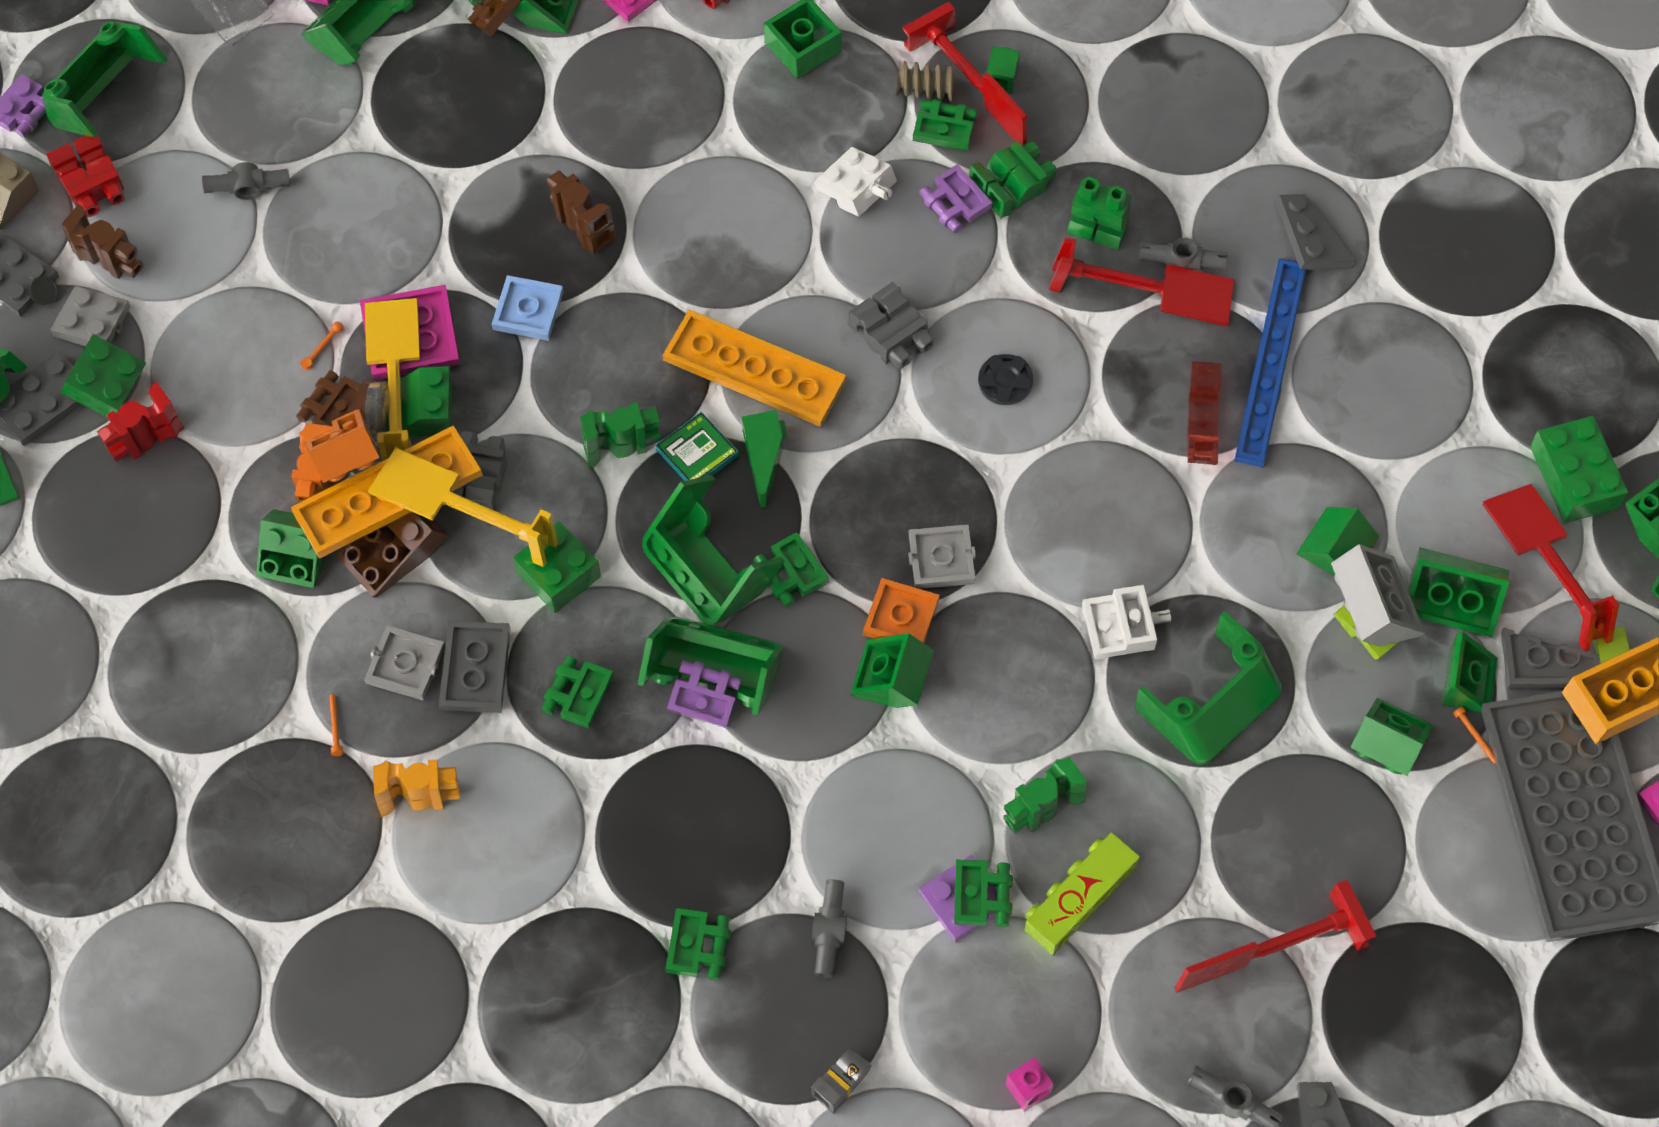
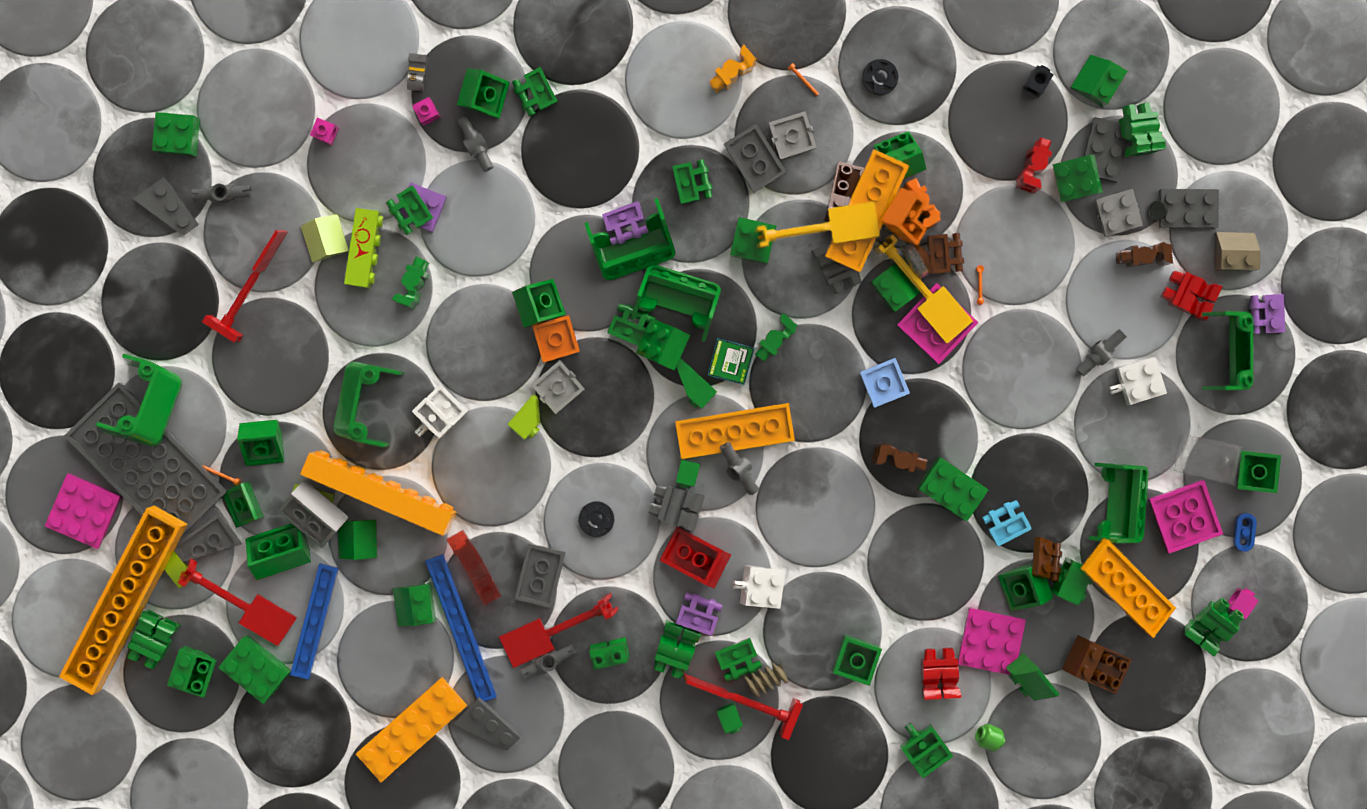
camera: 150 degrees right, 25 degrees up
(58, 532) = (1035, 88): none -> black brick
(230, 124) = (1139, 381): none -> white plate
(236, 663) = (880, 77): none -> black wheel
(510, 67) = (1010, 528): none -> medium azure plate
(542, 142) = (952, 489): none -> green brick
(767, 511) = (662, 344): none -> green brick
(770, 989) = (483, 93): none -> green slope
(781, 320) = (739, 468): none -> dark grey pin
(850, 355) = (687, 473): none -> green brick
(865, 1014) = (426, 111): none -> dark pink brick
(913, 258) = (695, 557): none -> red slope
(1009, 536) = (527, 419): none -> lime slope
(1124, 357) = (540, 575): none -> dark grey plate
(1128, 944) = (324, 237): none -> yellowish green slope
(1270, 570) = (379, 493): none -> light orange brick
(1313, 419) = (414, 605): none -> green slope
(1414, 288) = (411, 729): none -> light orange plate
(1460, 480) = (314, 621): none -> blue plate
(1482, 888) = (155, 408): none -> green windscreen

